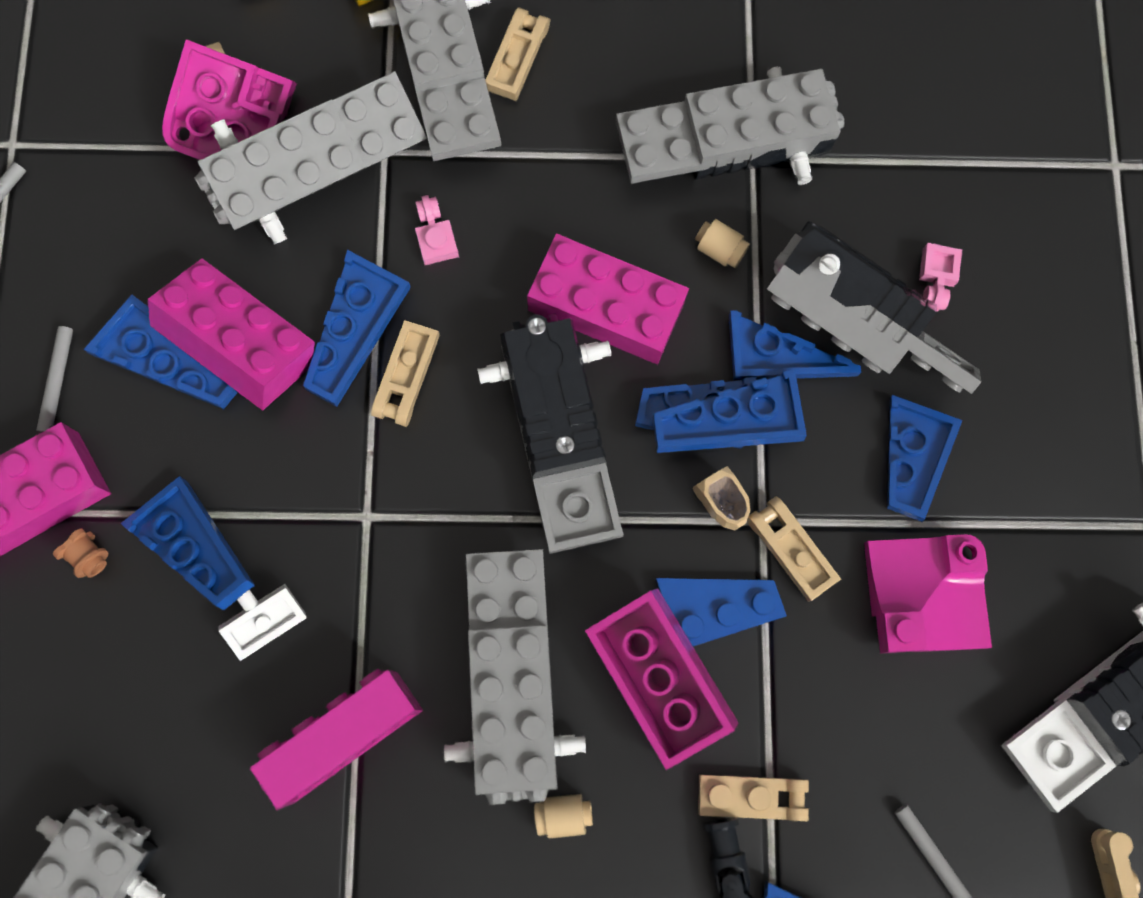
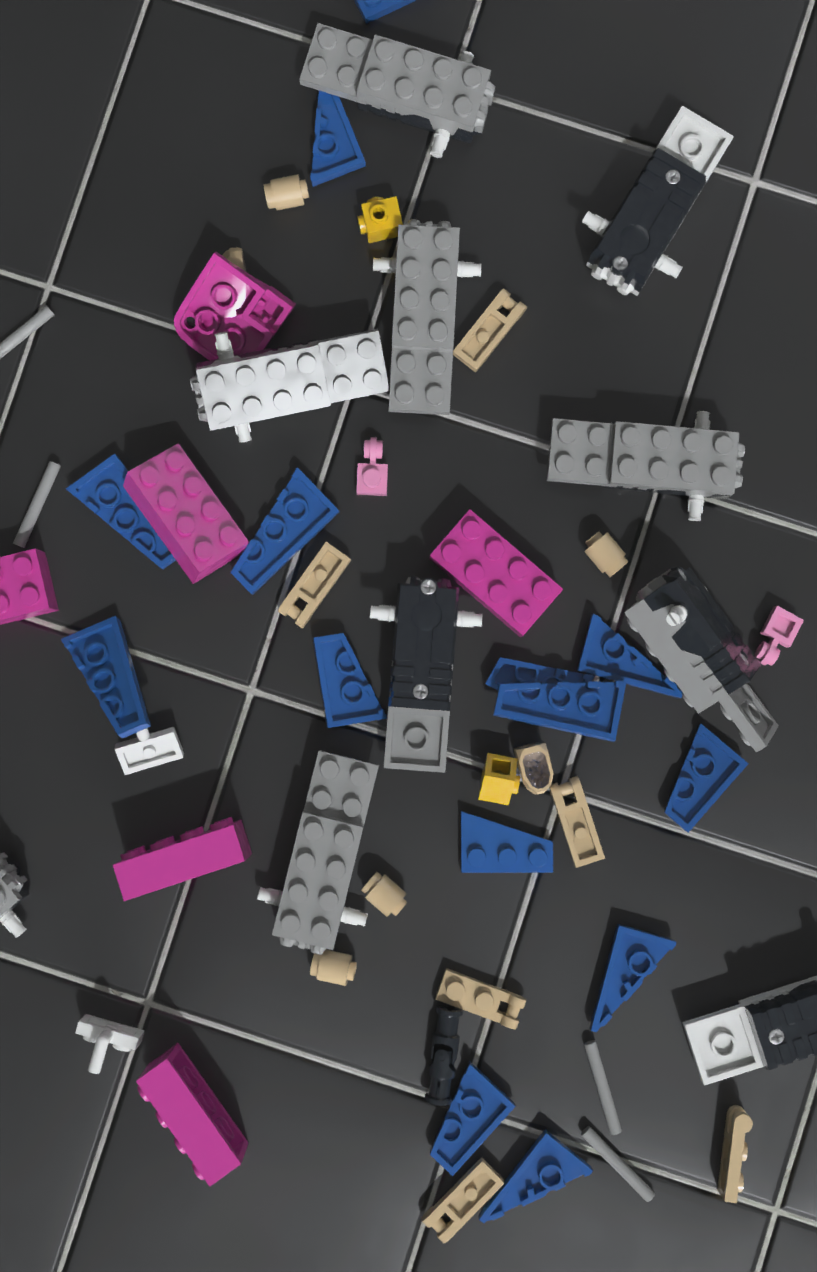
camera: 25 degrees right, 10 degrees up
(82, 554) = (26, 655): nougat brick -> none
(472, 475) = (343, 685): none -> blue wing
(597, 705) = (384, 894): none -> tan brick
(662, 678) = (439, 891): dark pink brick -> none
(688, 525) = (499, 779): none -> yellow brick
(912, 691) = (629, 962): none -> blue wing
(928, 594) = (670, 891): dark pink slope -> none

